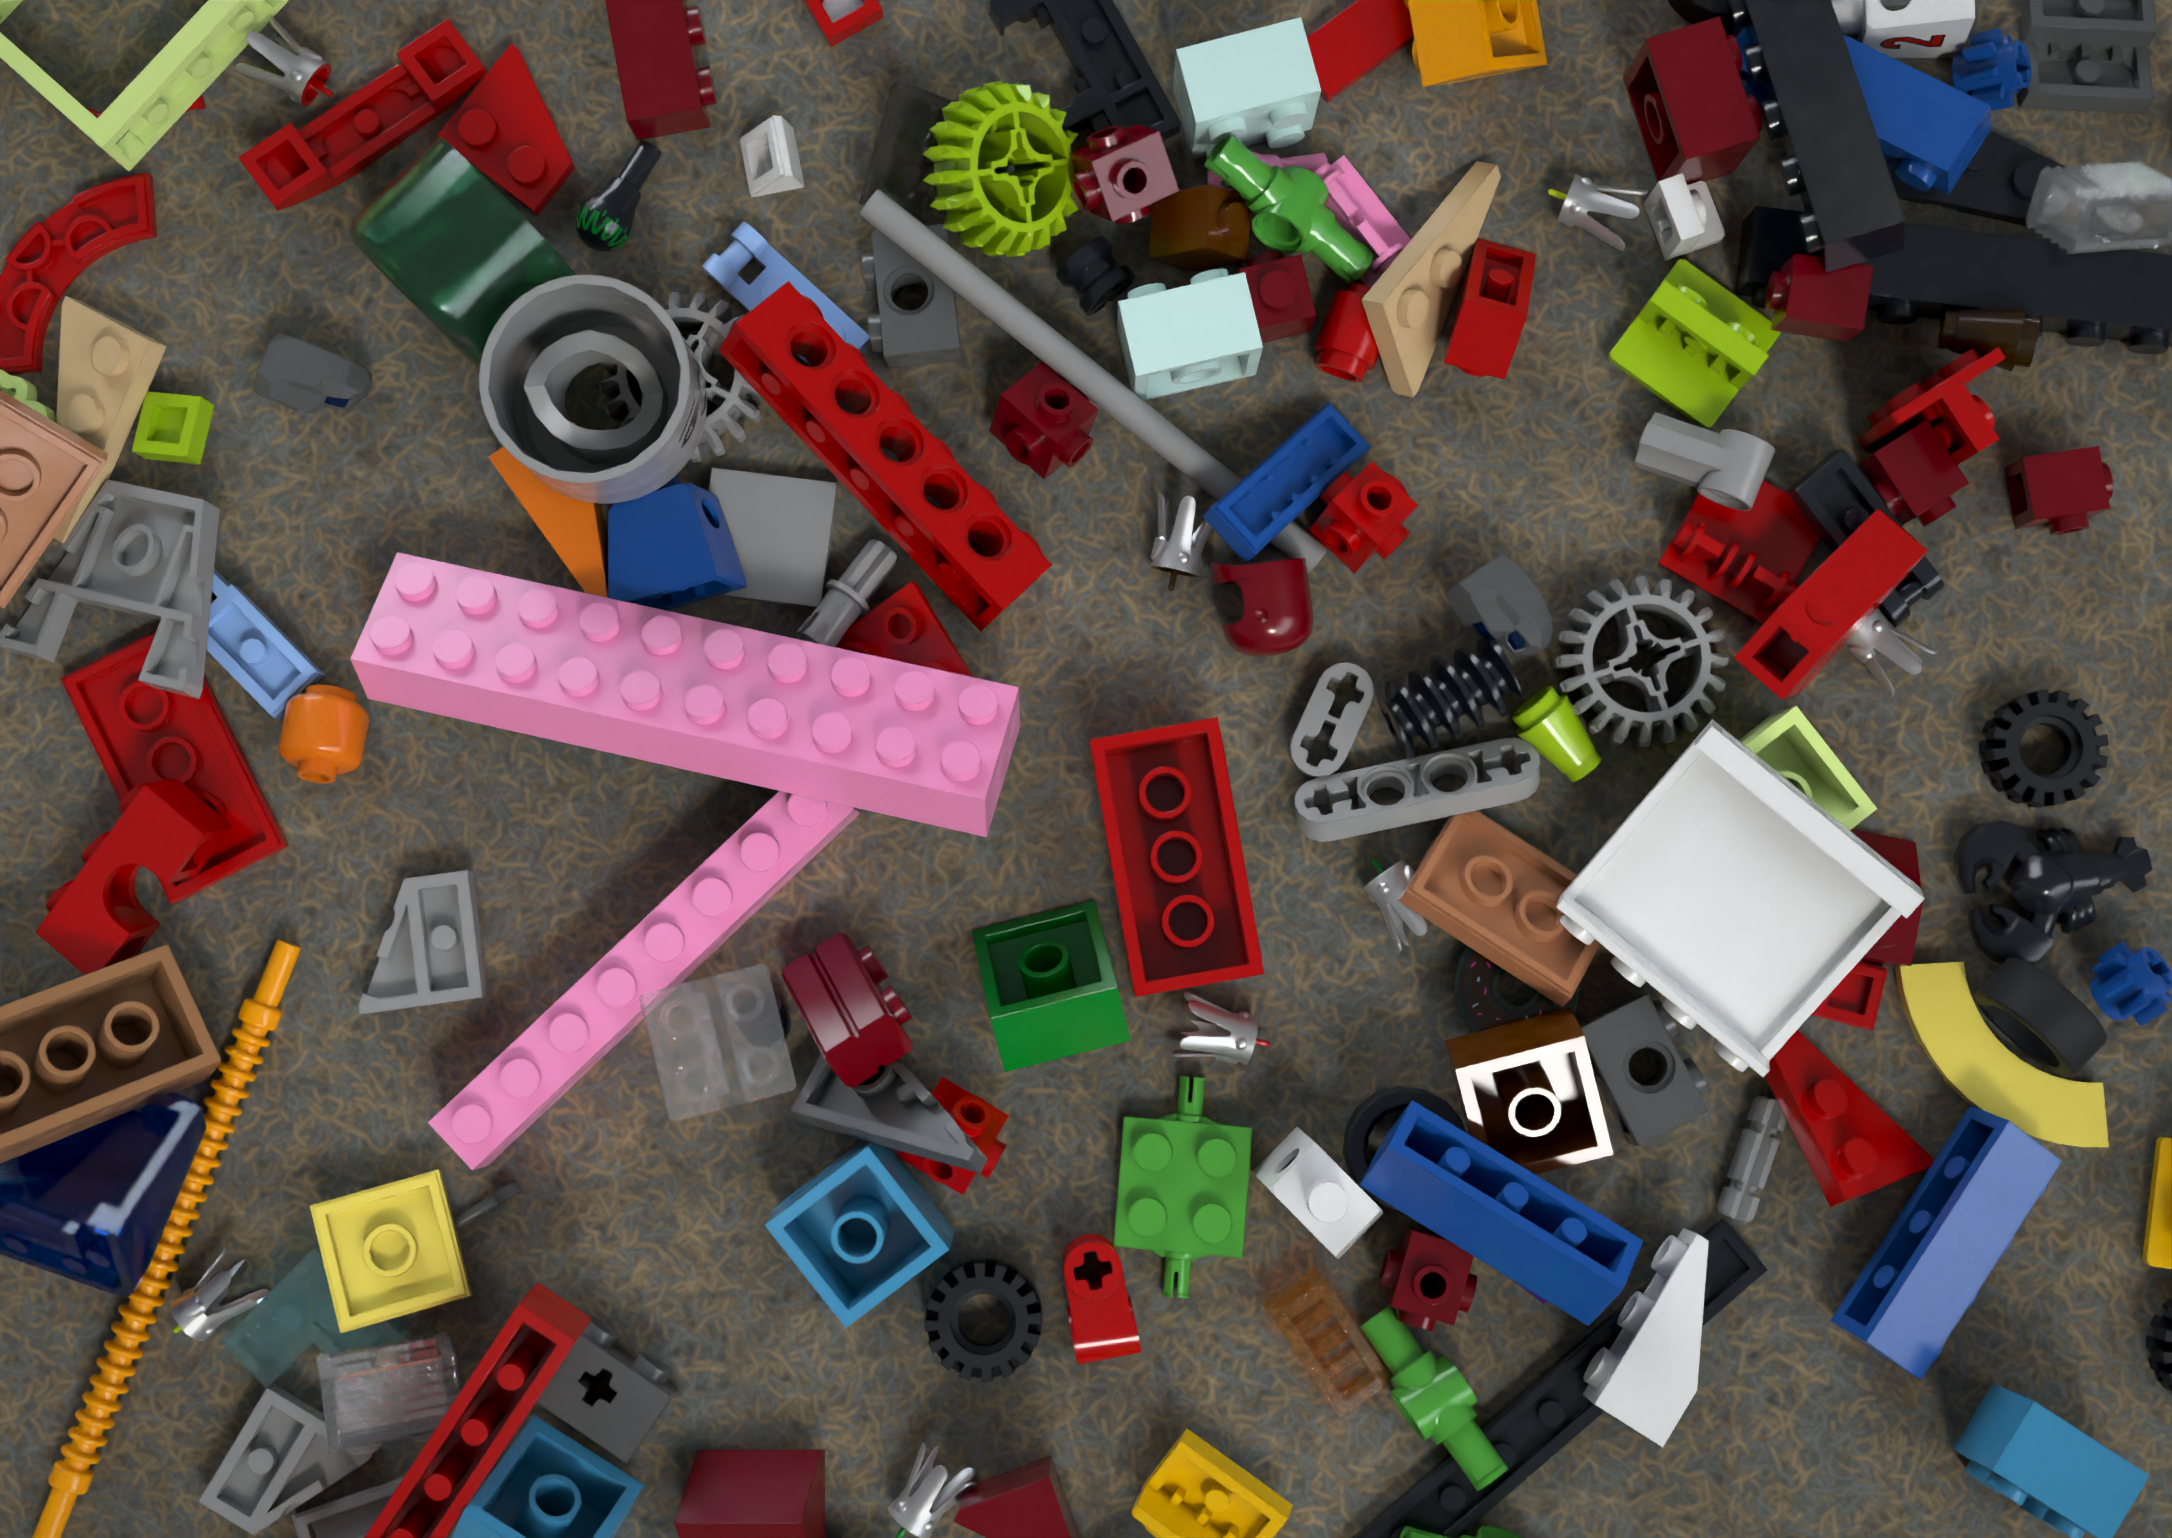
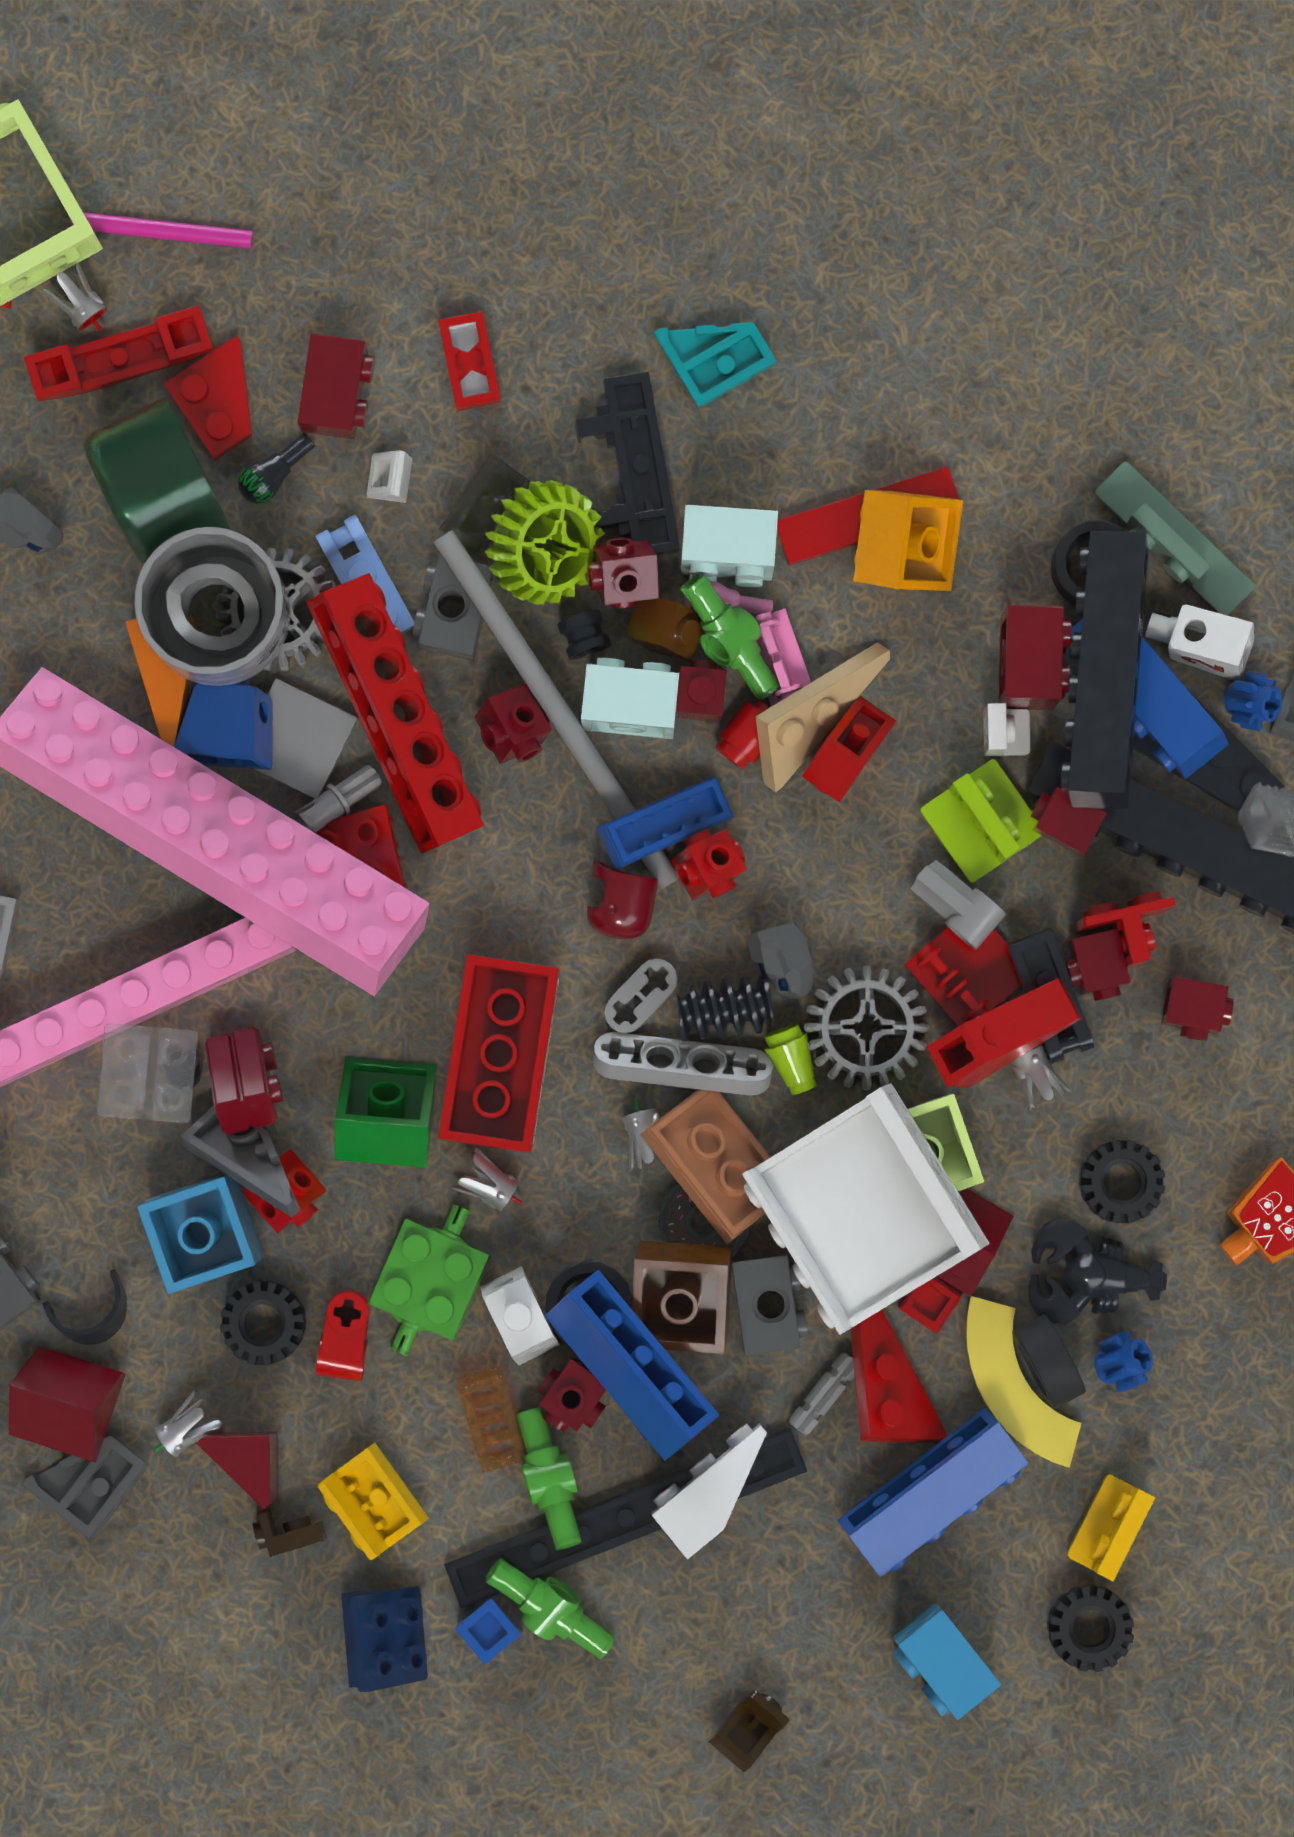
camera: 15 degrees right, 0 degrees up
(775, 1402) = (104, 1329): none -> black helmet
(1176, 547) = (574, 840): flat silver piece -> none
(1584, 197) = (941, 697): flat silver piece -> none
(1989, 329) = (1187, 886): dark brown cone -> none

